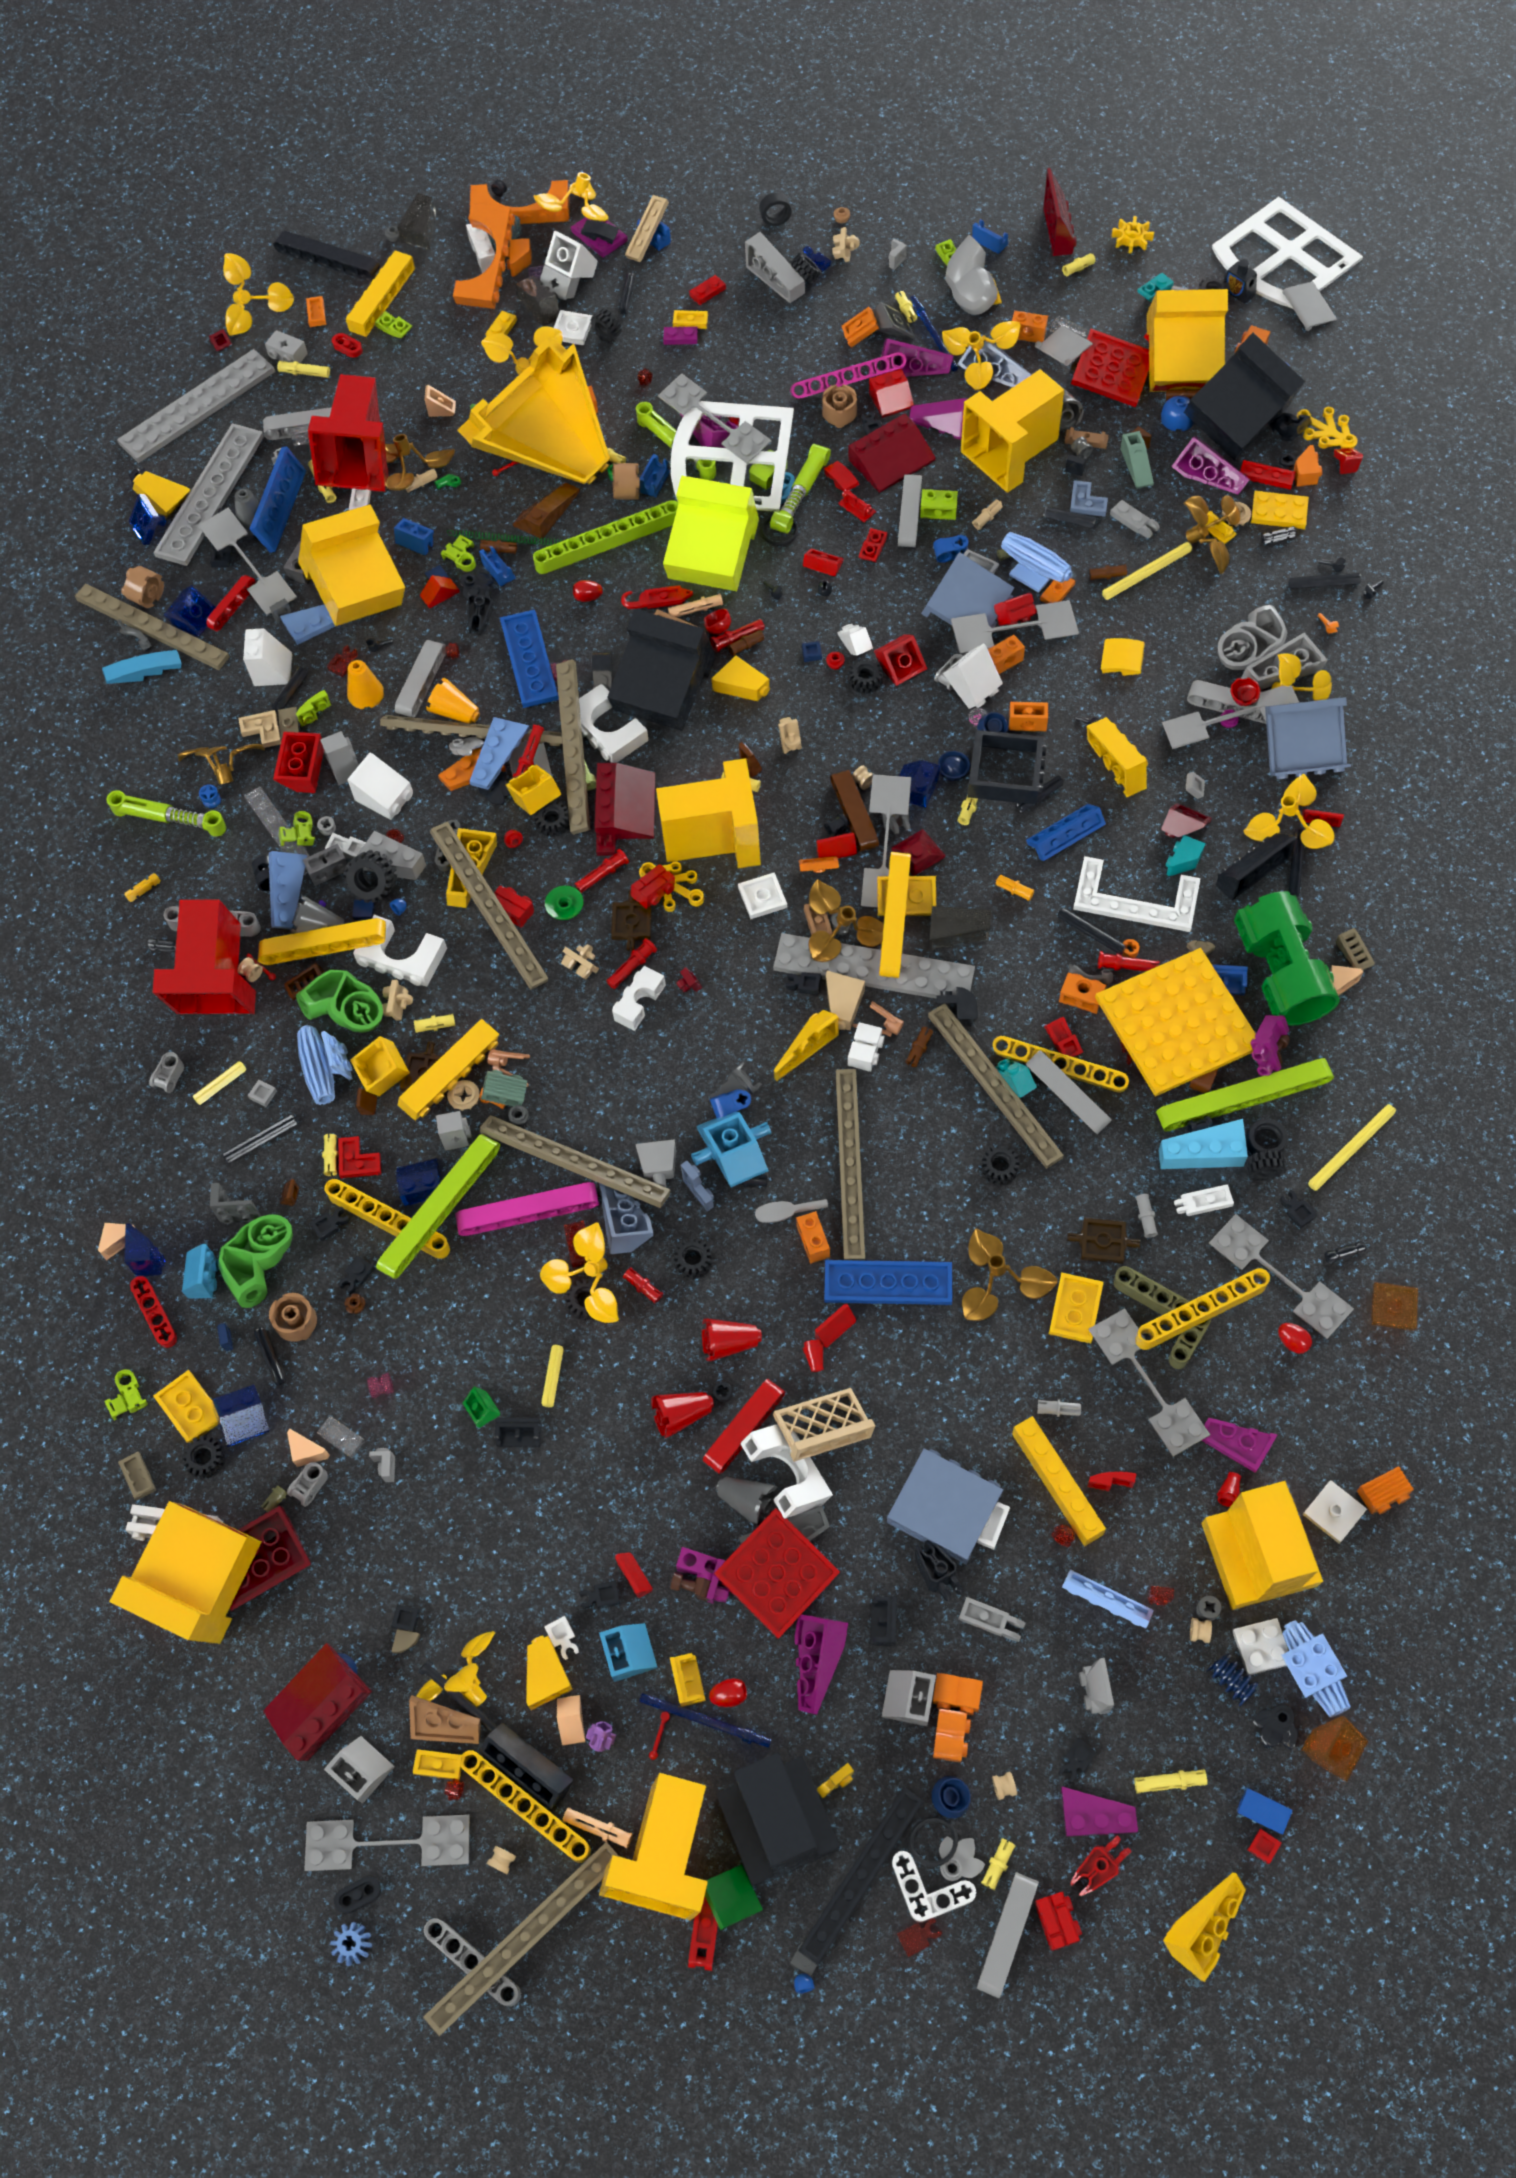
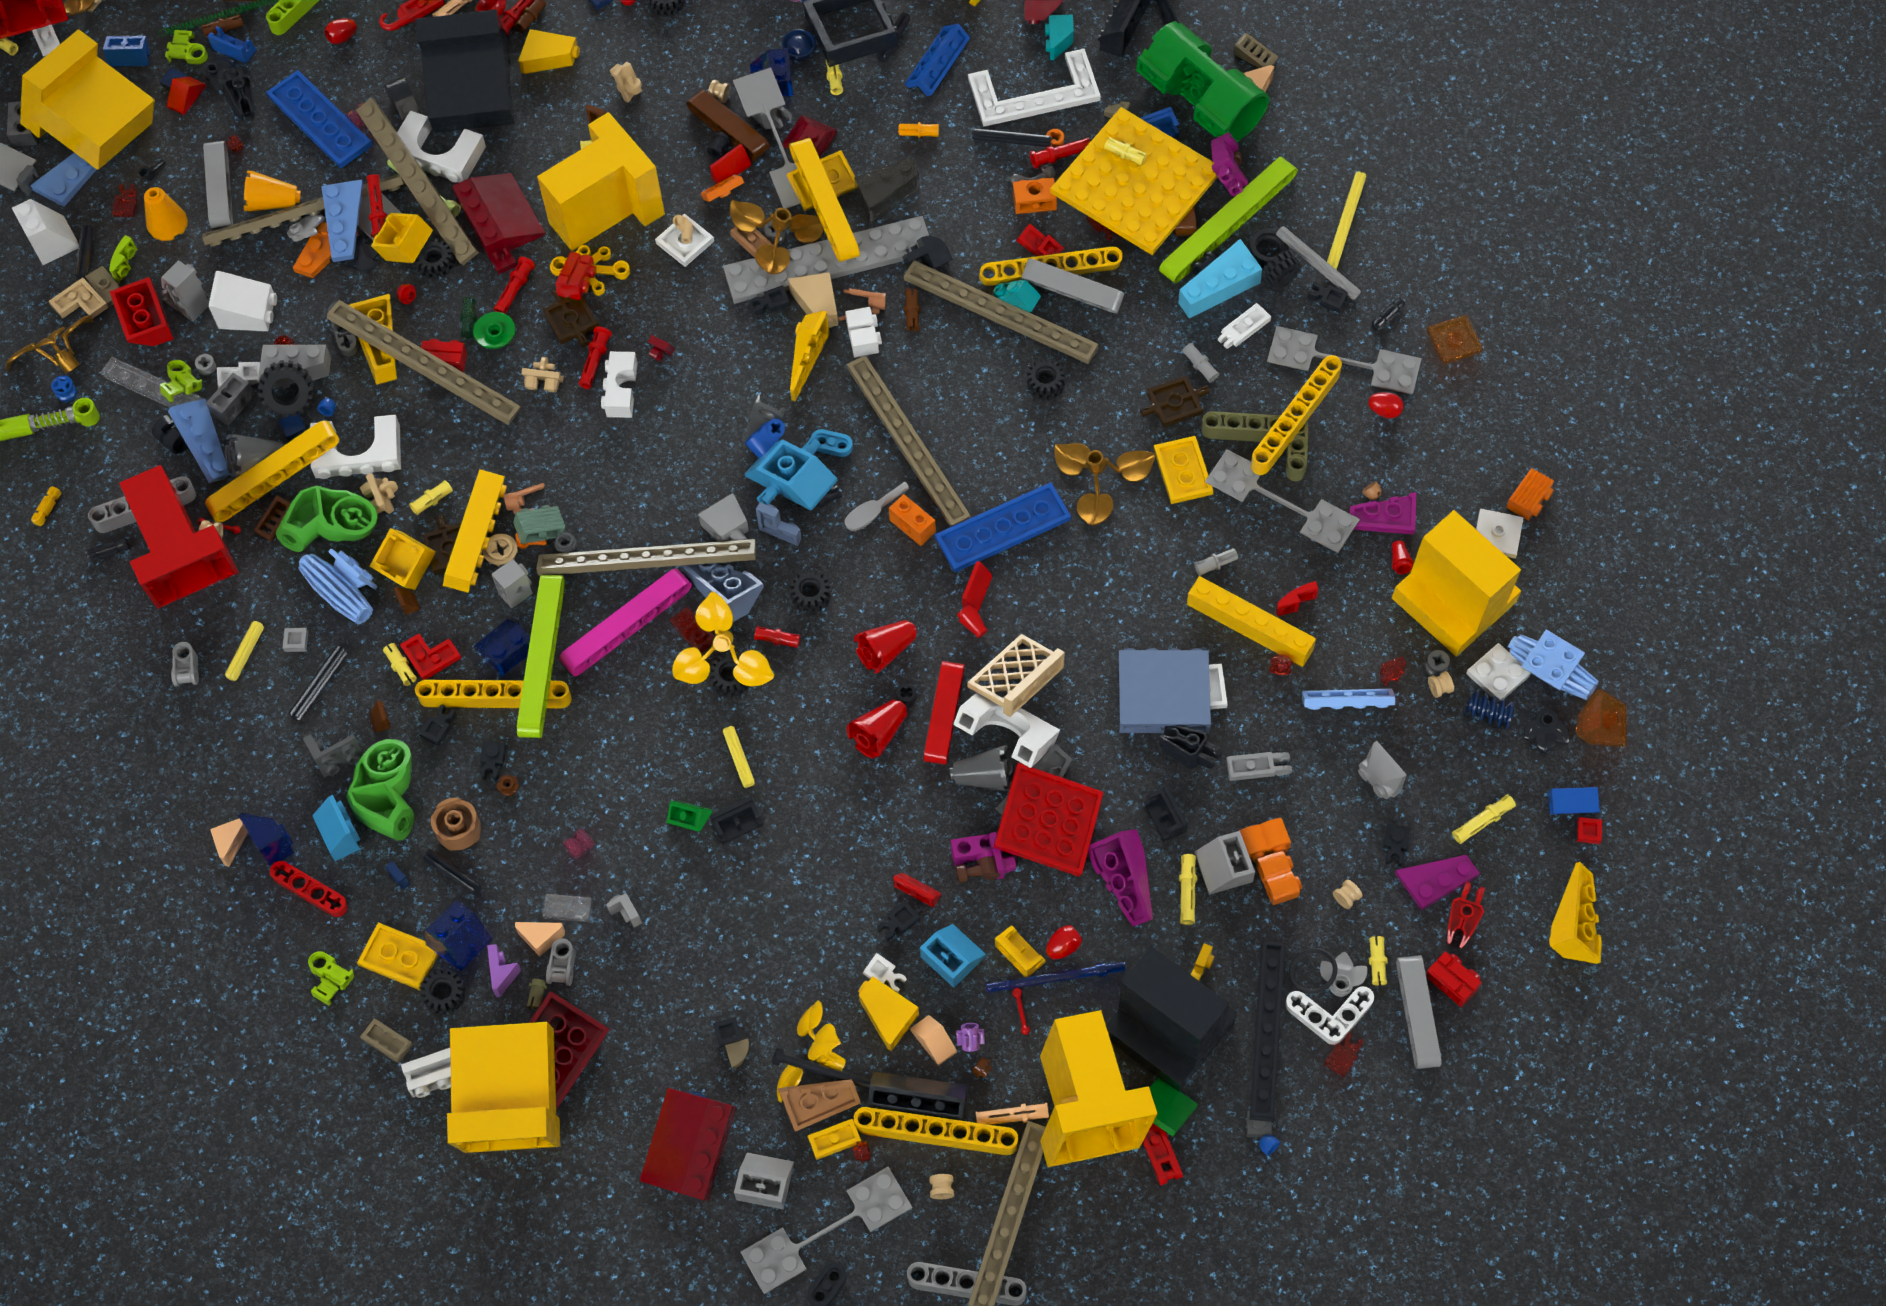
camera: 30 degrees left, 0 degrees up
(254, 1467) = (501, 974): none -> medium lavender slope
(550, 881) = (468, 317): none -> clear green pin
(596, 1769) = (982, 1068): none -> reddish brown plate
(767, 885) = (685, 227): none -> tan arm
(785, 1134) = (832, 442): none -> dark azure plate
(869, 1694) = (1188, 882): none -> light yellow pin
(951, 1797) = (1307, 927): dark blue hat -> none
(1180, 991) = (1125, 151): none -> light yellow pin
(1238, 1413) = (1372, 491): none -> medium nougat hinge
(1304, 1174) = (1318, 262): none -> light grey axle

